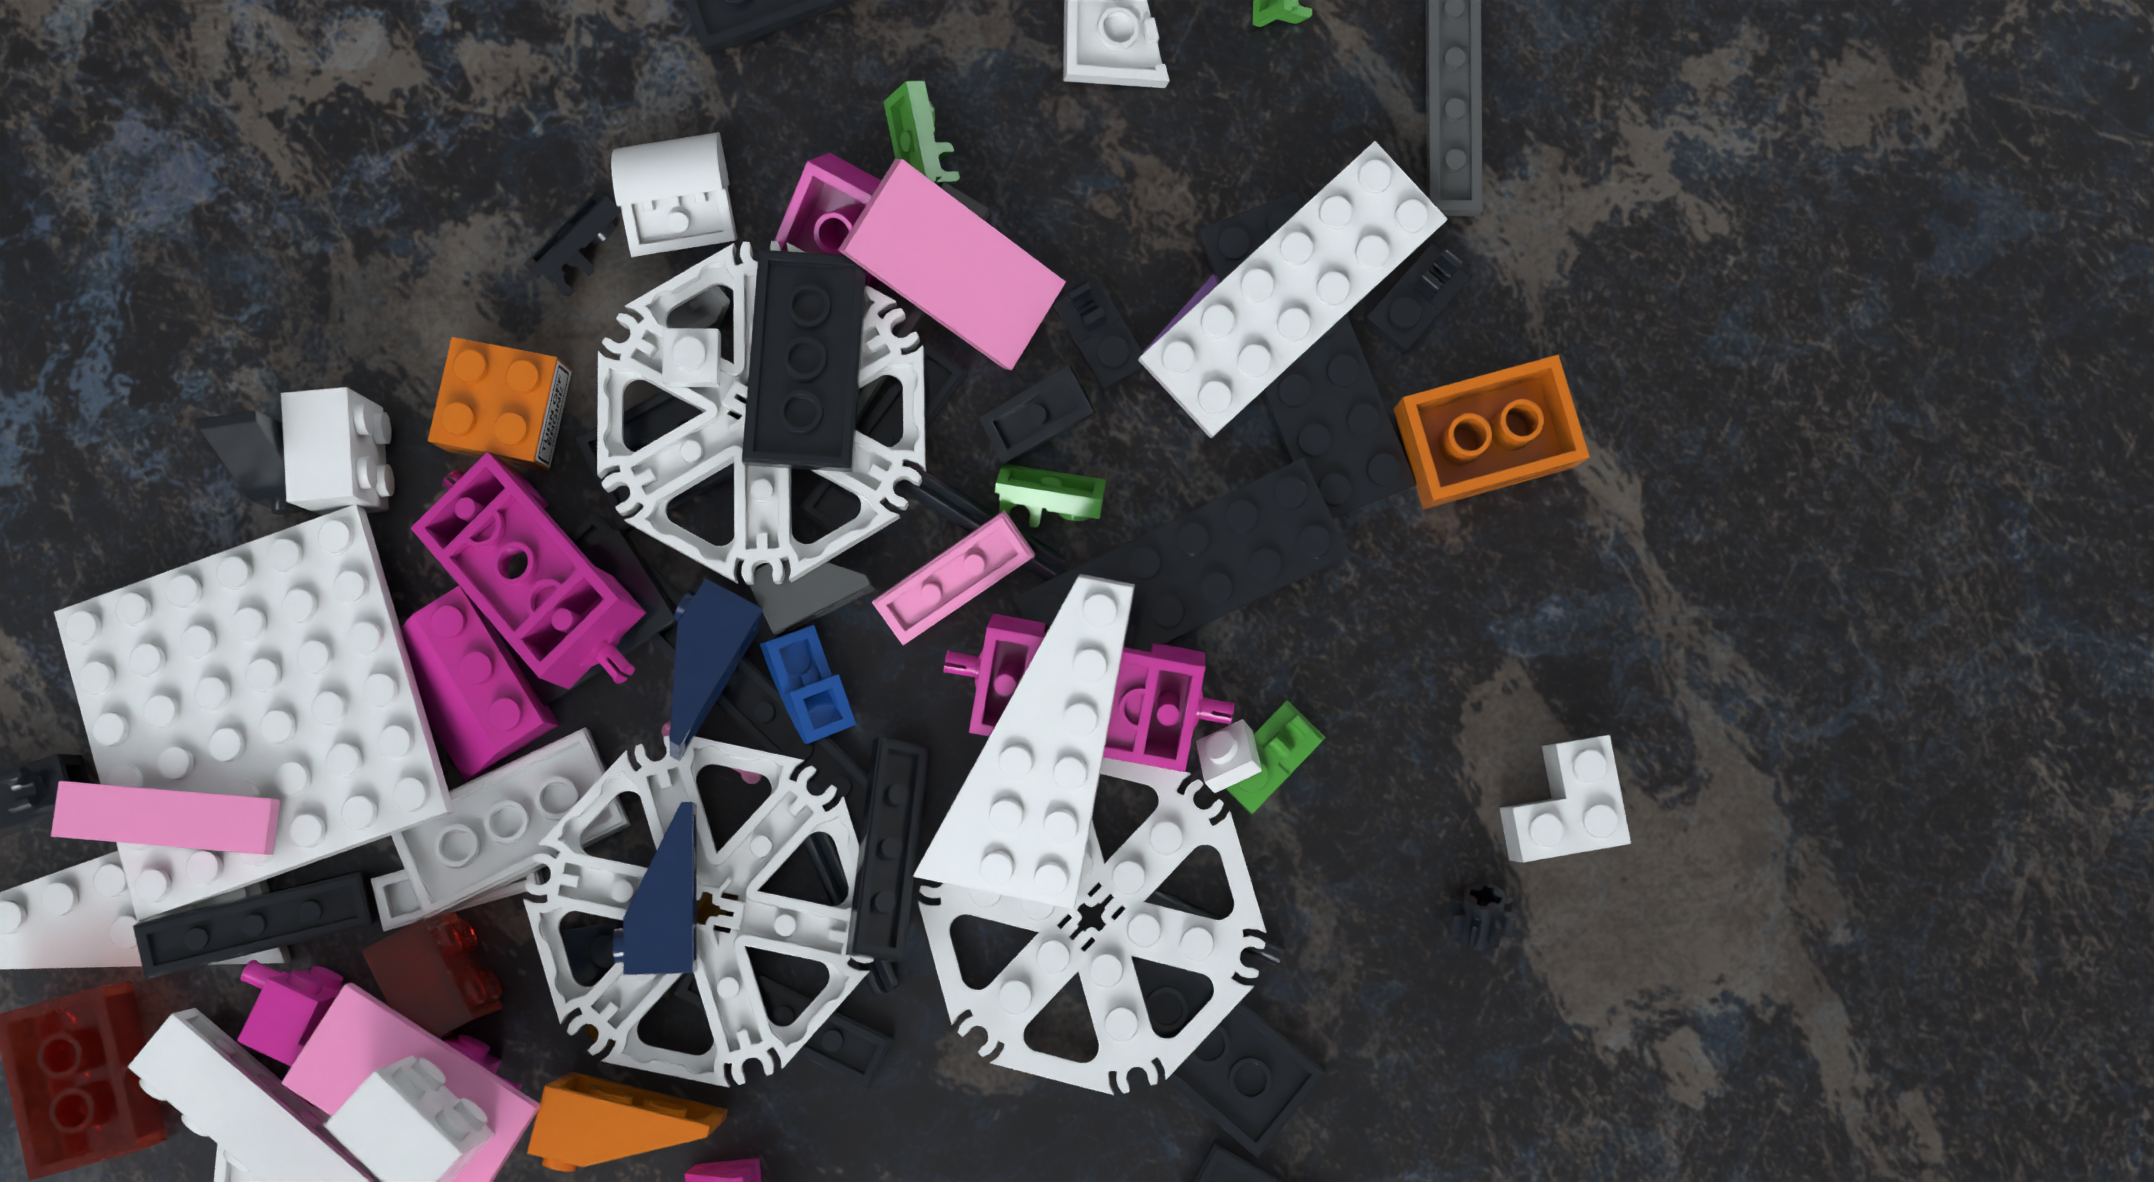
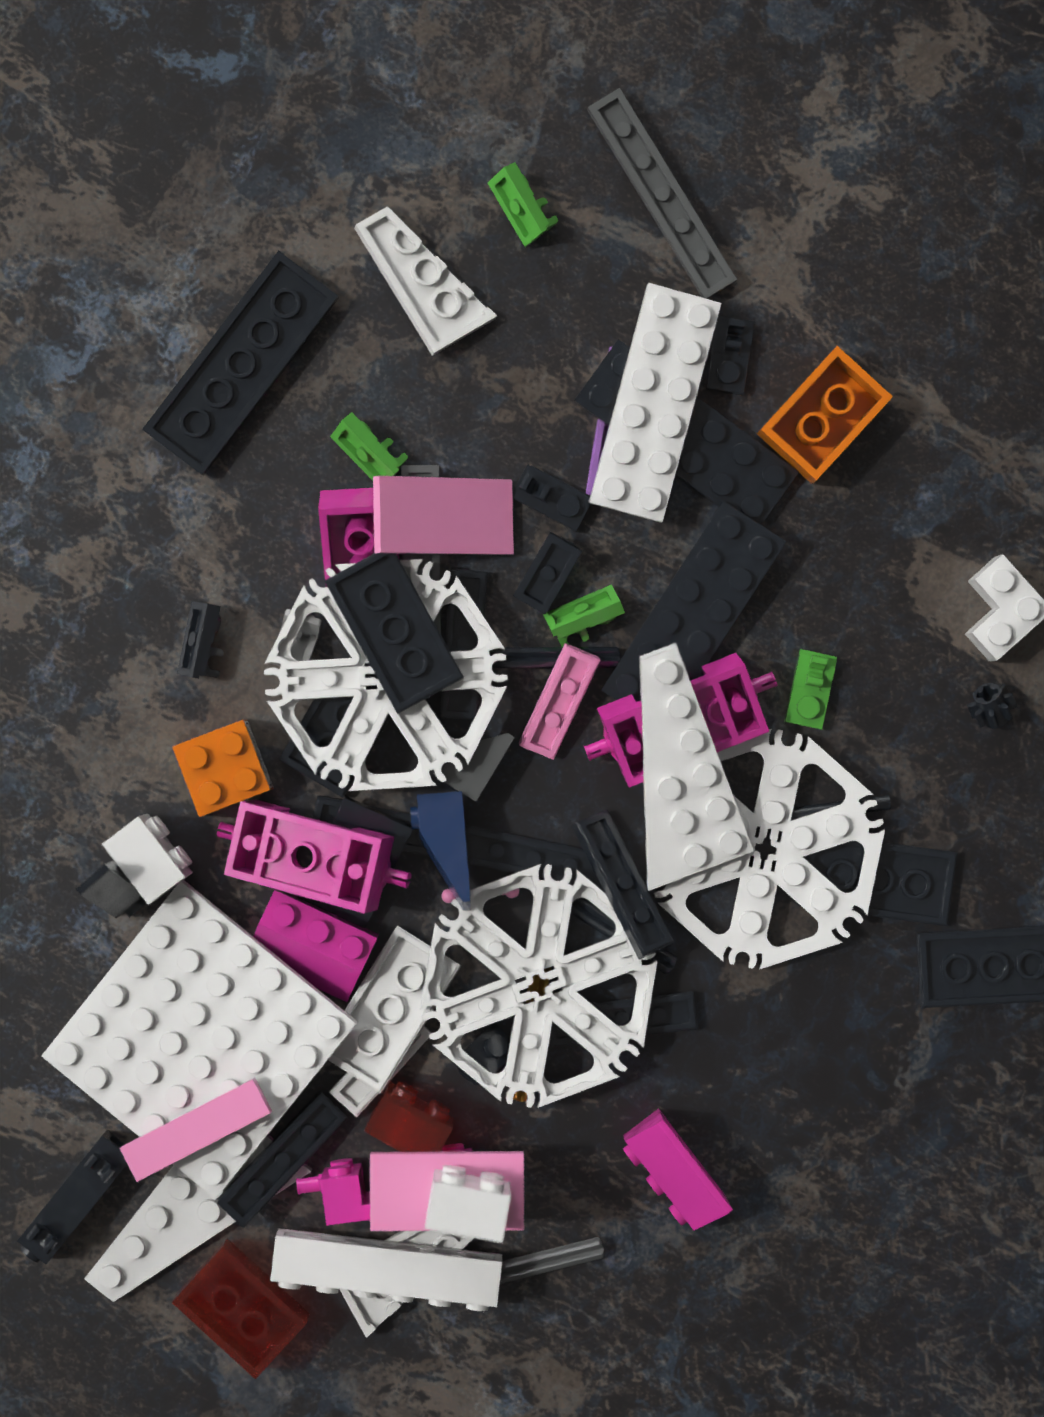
camera: 30 degrees left, 5 degrees up
(602, 1120) = (563, 1139): orange slope -> none
(662, 916) = (520, 1001): dark blue slope -> none
(673, 194) = (242, 574): white brick -> none
(691, 357) = (326, 670): white plate -> none
(806, 684) = (510, 818): blue slope -> none
(1228, 756) = (787, 704): white plate -> none

